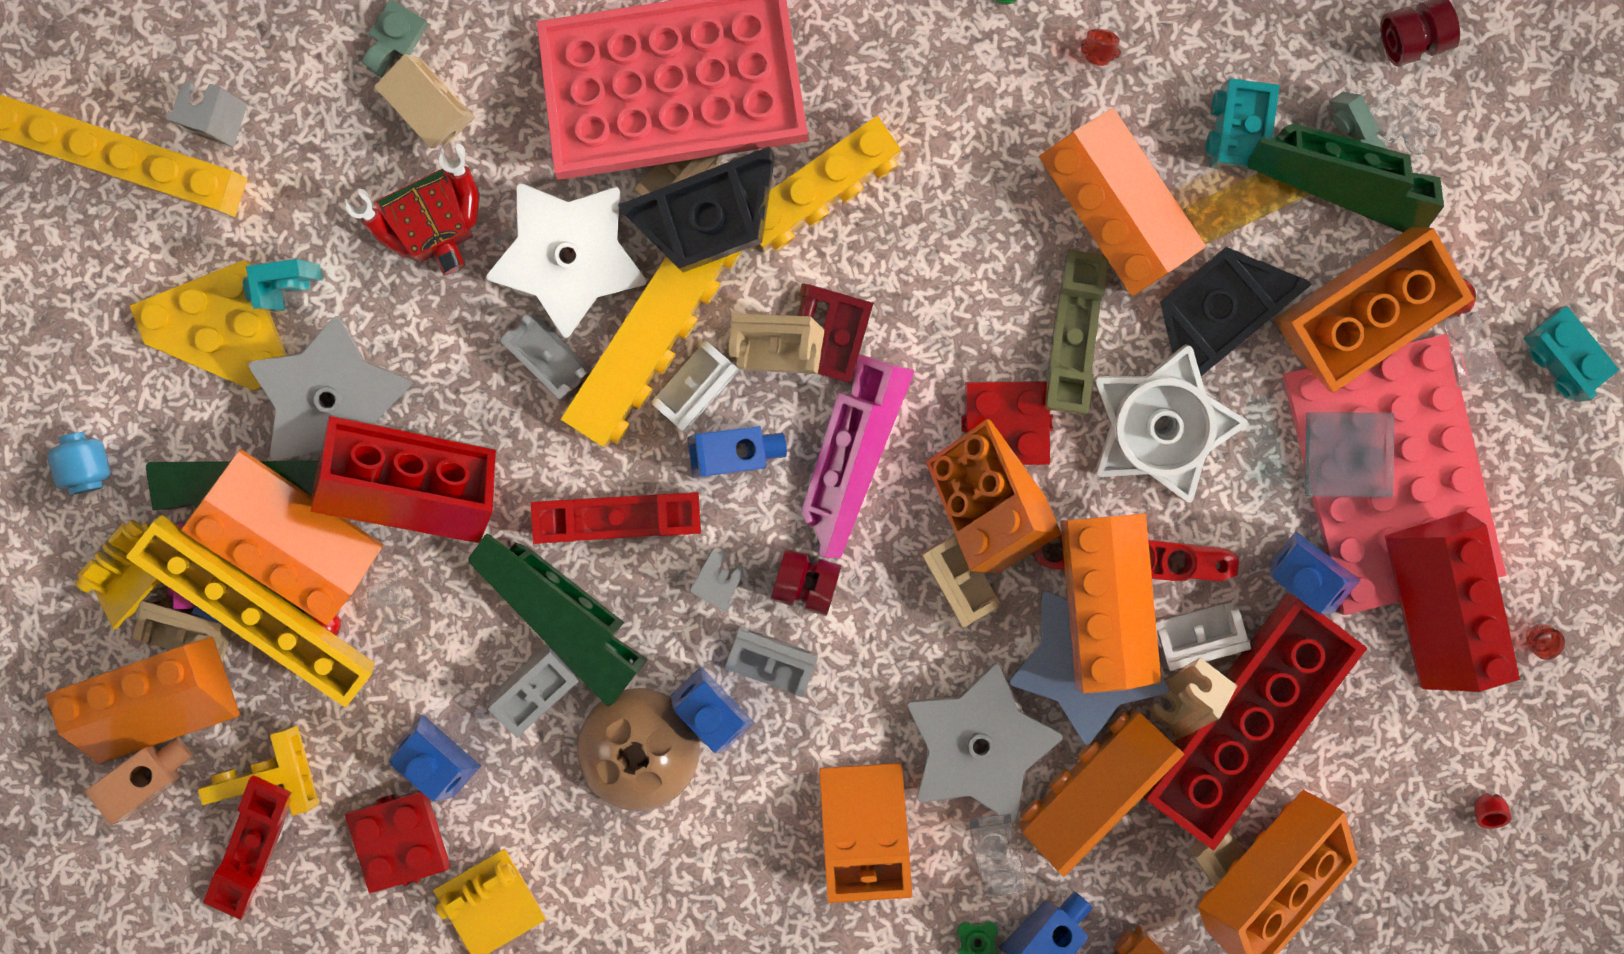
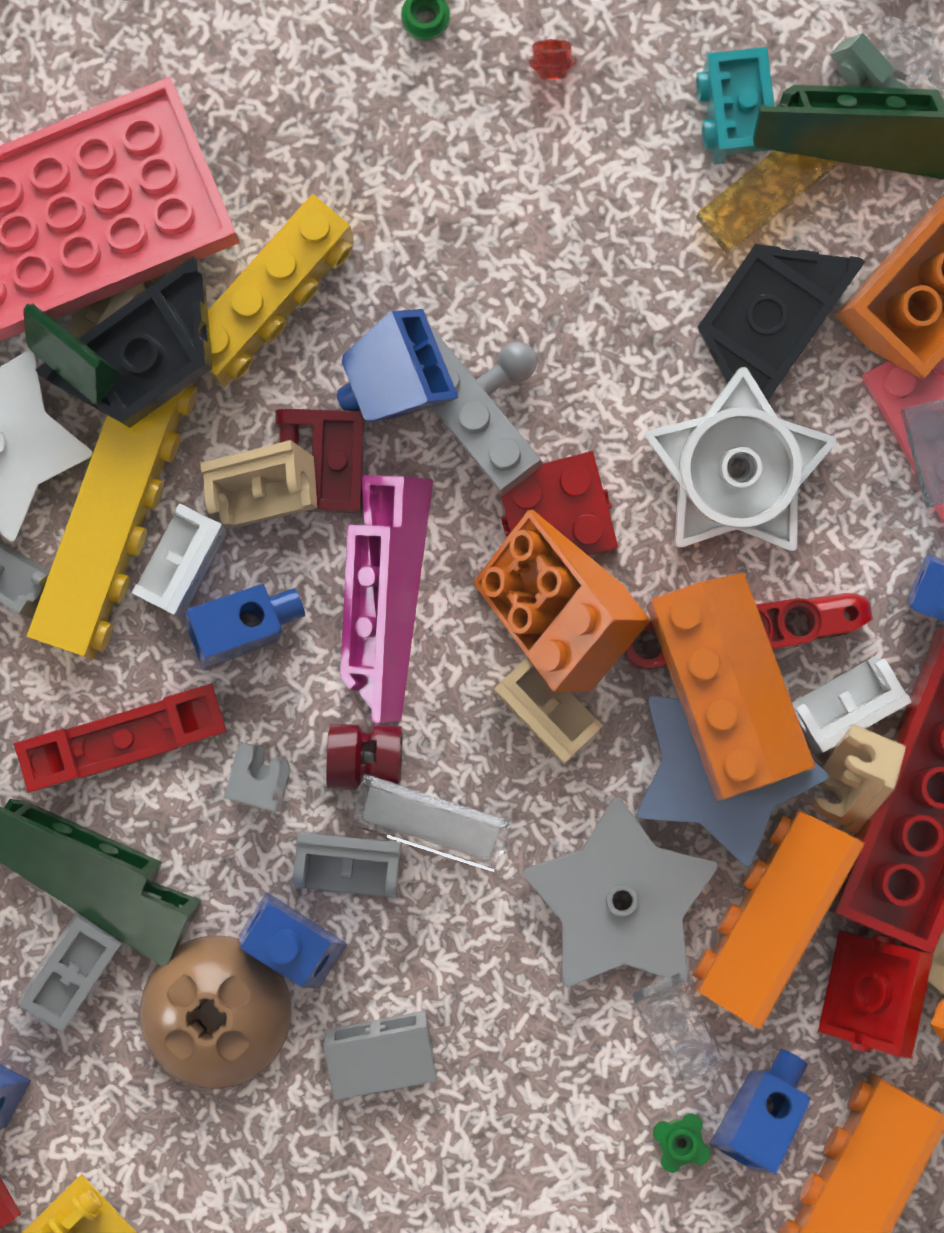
camera: 15 degrees left, 5 degrees down
(649, 202) = (68, 355): none -> dark green slope
(760, 816) = (379, 1055): none -> light grey hinge
(845, 647) = (430, 823): none -> clear piece
(865, 833) = (510, 1042): orange slope -> none
(908, 278) = (395, 369): none -> torso
(957, 316) = (480, 423): none -> light grey plate
(1075, 333) = (608, 386): olive slope -> none
(1122, 201) = (622, 223): orange slope -> none
(1160, 868) = (875, 994): none -> red plate

